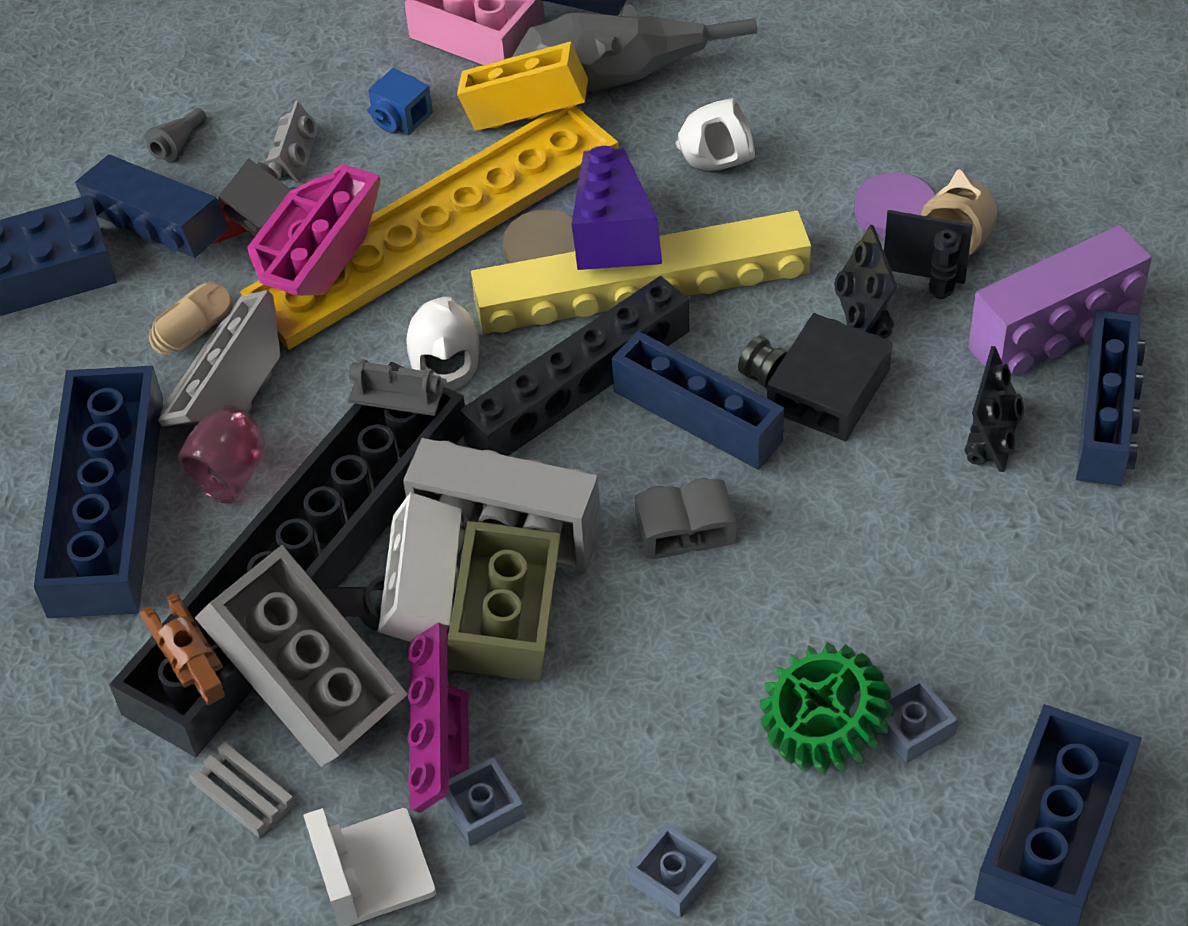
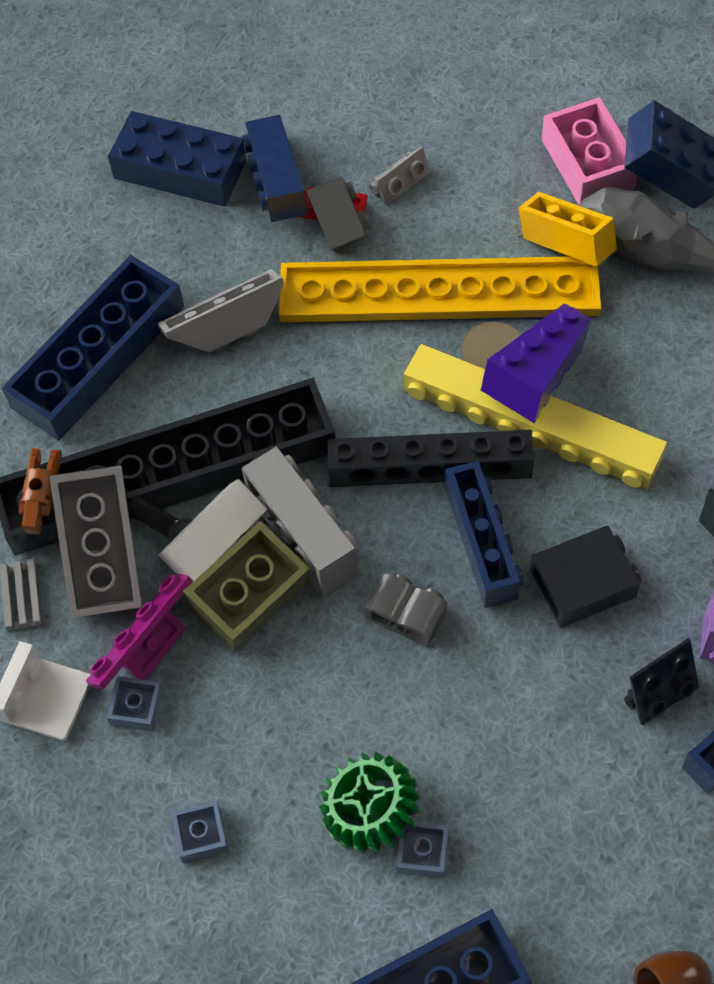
camera: 40 degrees right, 10 degrees up
(169, 138) = (332, 123): dark grey cone -> none
(190, 318) = (240, 261): tan arm -> none
(228, 444) = (178, 369): clear pink piece -> none
(315, 232) = (342, 255): dark pink wedge -> none
(397, 390) = (294, 400): dark grey hinge -> none
(399, 102) = (489, 186): blue brick -> none
(441, 331) = (367, 376): white piece -> none
(716, 136) = (668, 349): white piece -> none
(760, 360) = (550, 532): pearl dark grey wheel -> none
(867, 287) = (662, 533): black hinge -> none

